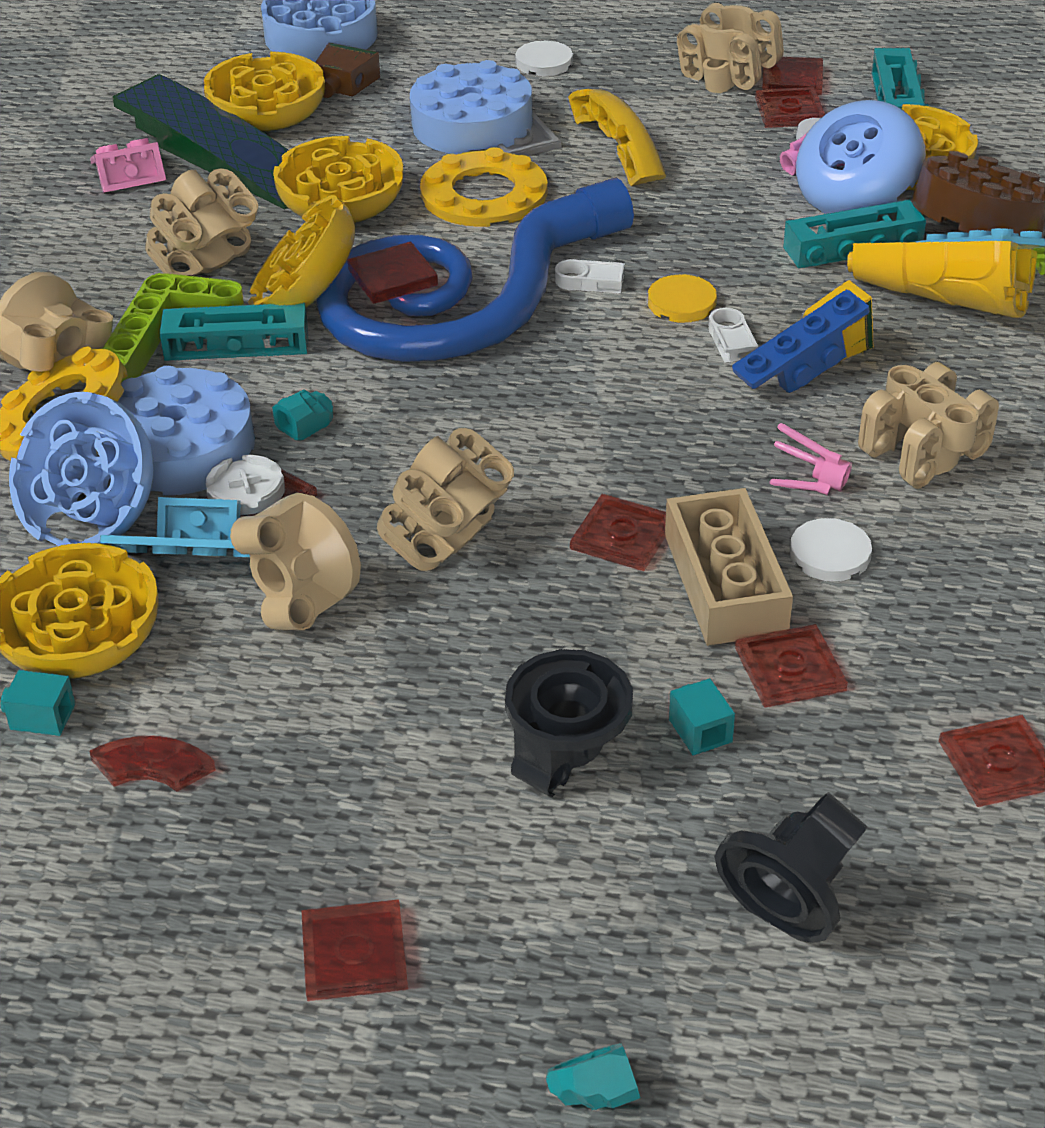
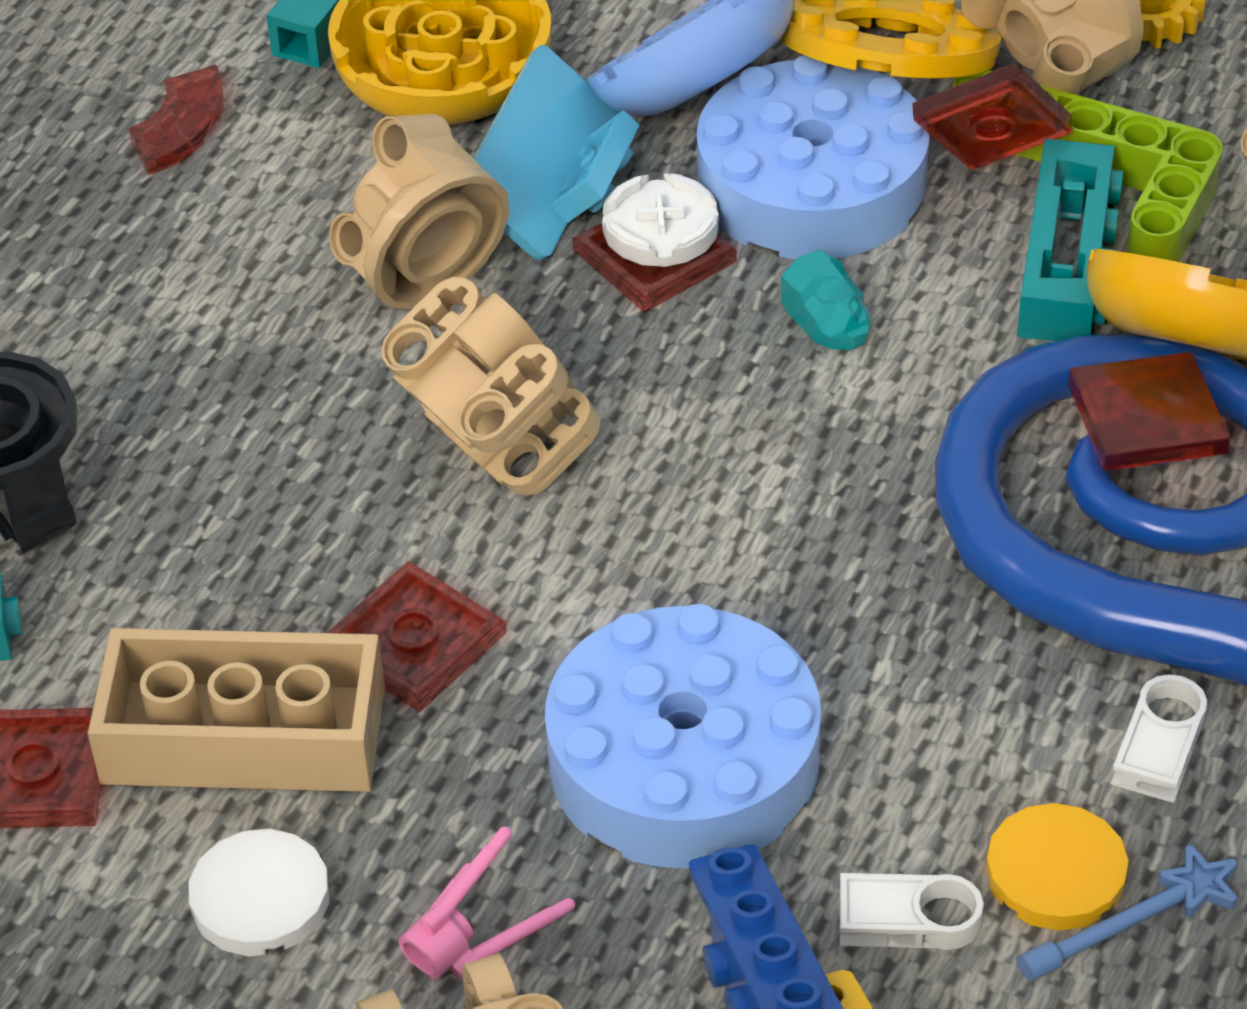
camera: 105 degrees right, 5 degrees up
(159, 333) = (992, 116): none -> clear red tile
(665, 407) = (682, 734): none -> light blue brick
(674, 263) = (1192, 883): none -> medium blue piece

